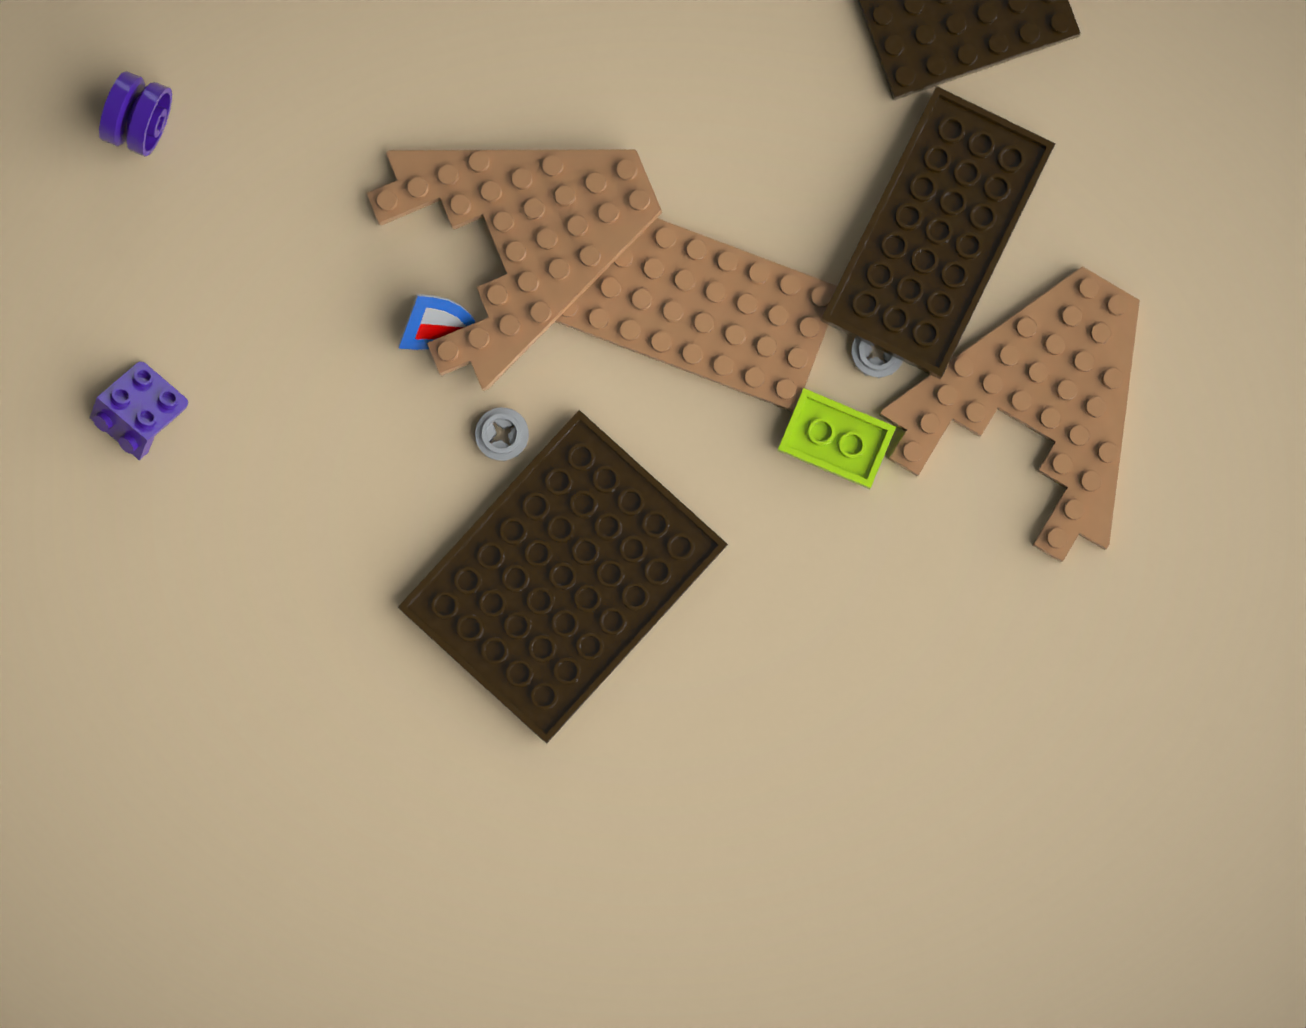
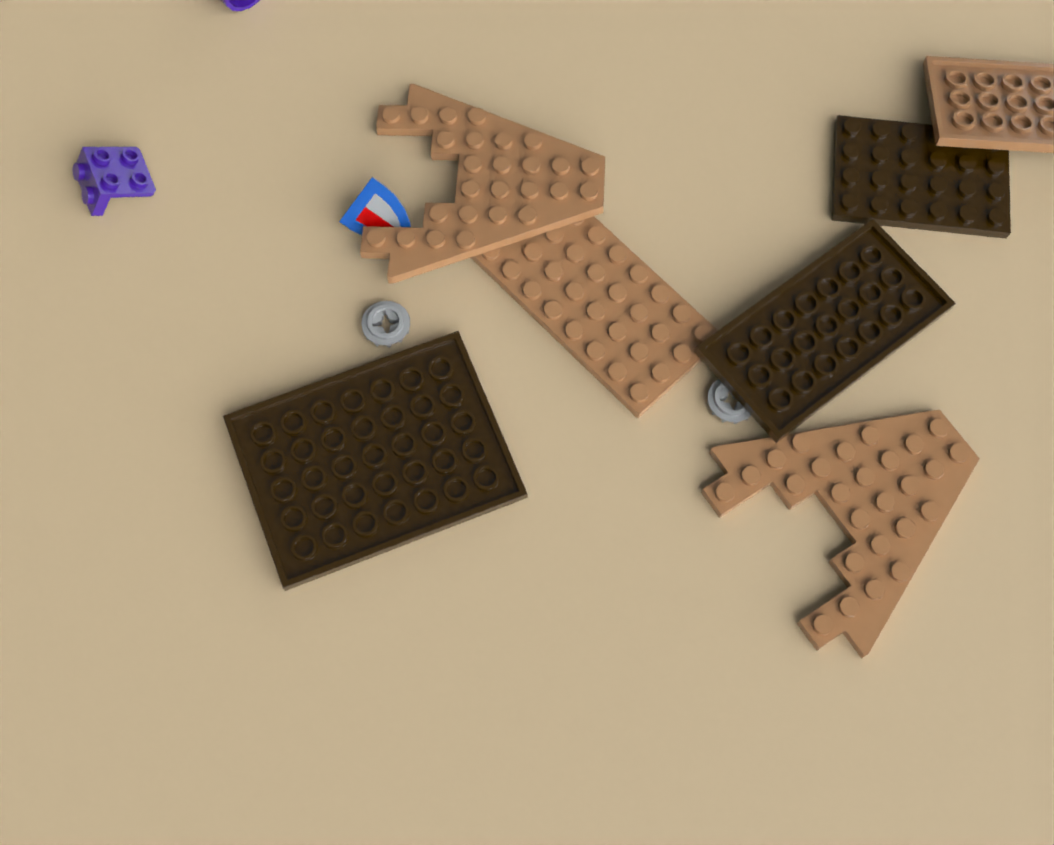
camera: 25 degrees right, 15 degrees down
(836, 438) = (663, 452): lime plate -> none

